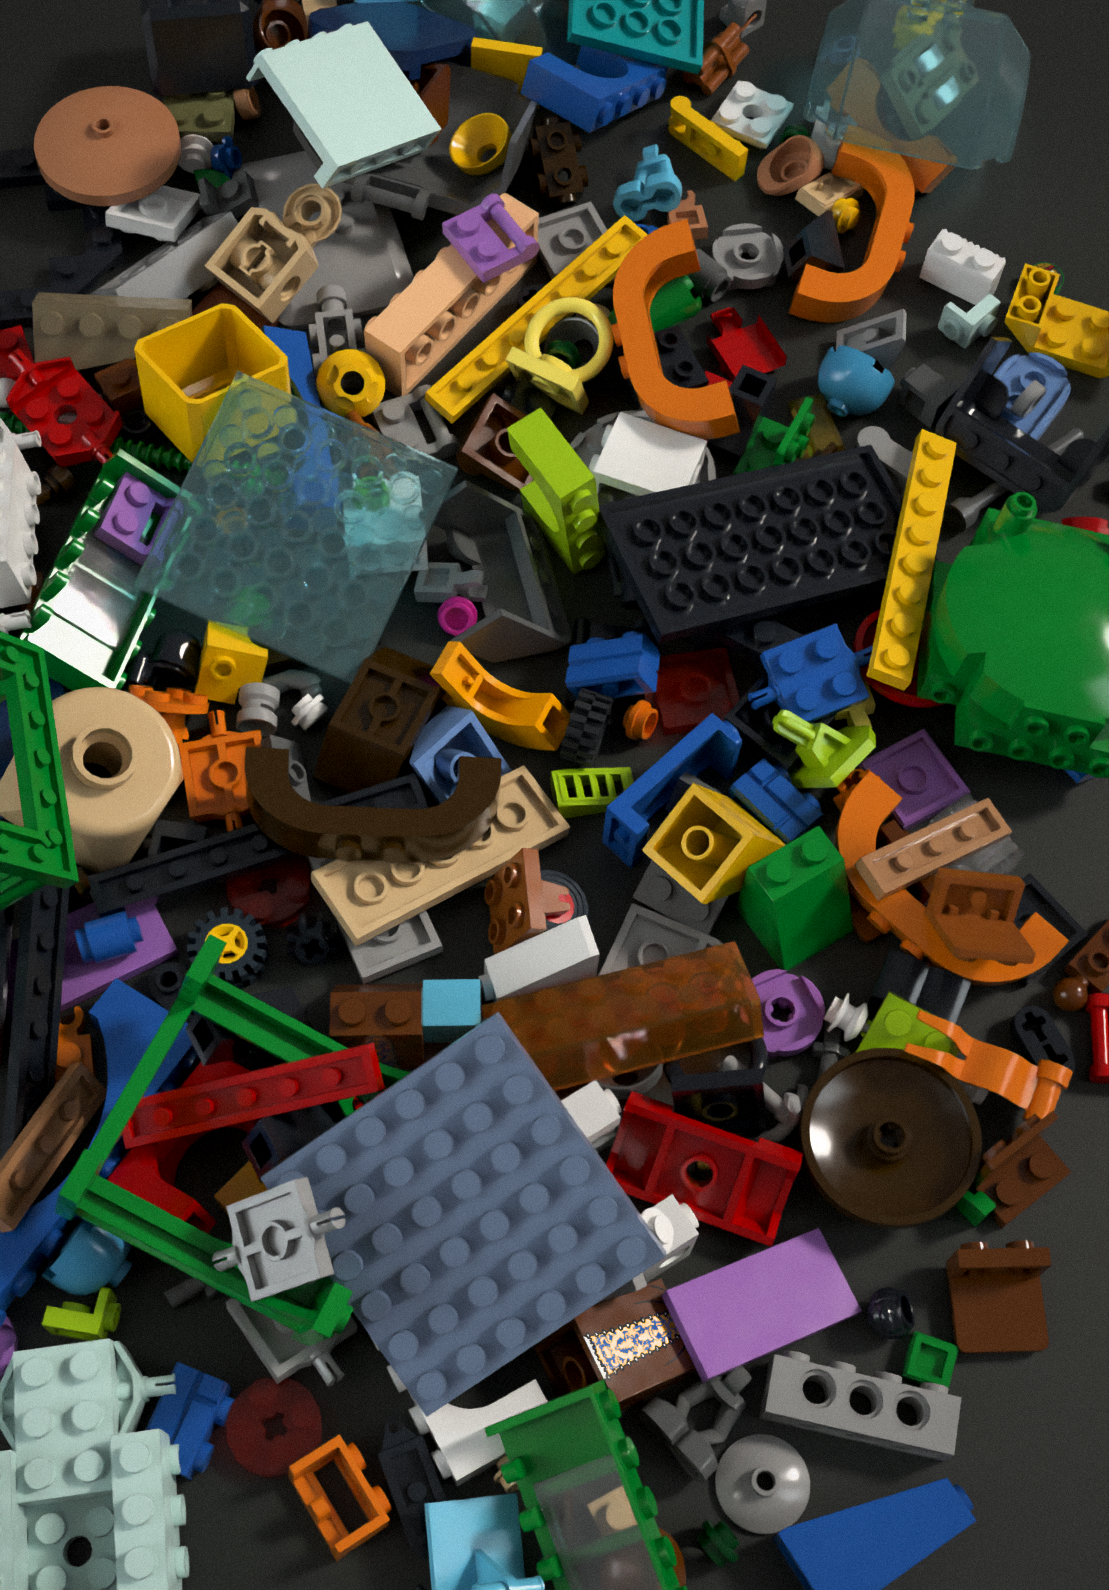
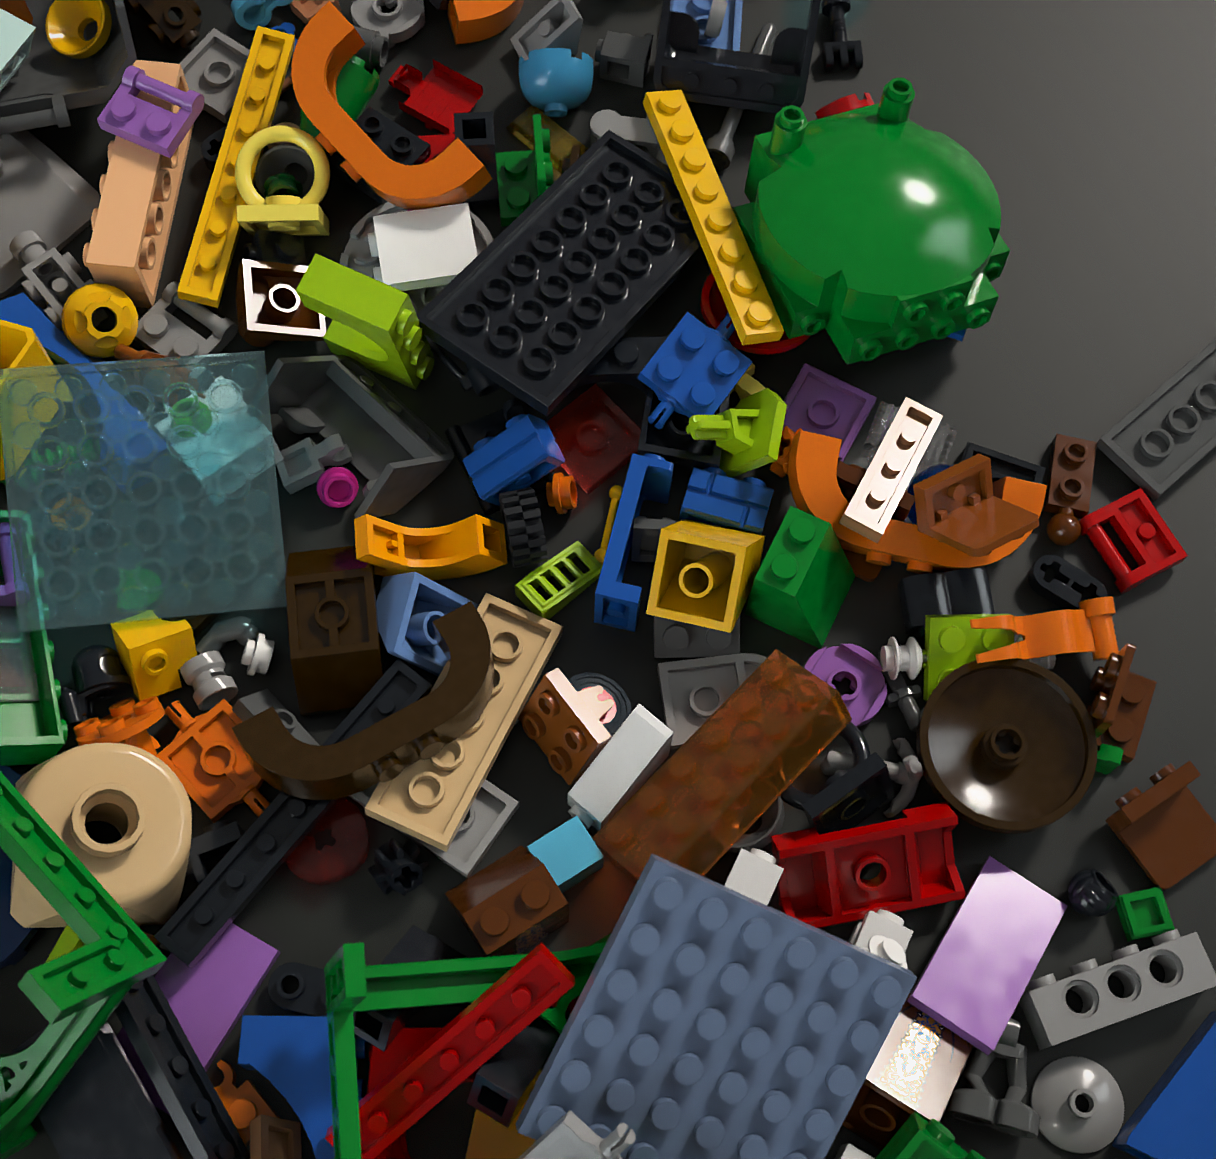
camera: 30 degrees left, 5 degrees up
(108, 938) = (210, 981): blue brick -> none
(242, 938) = (324, 905): black wheel -> none

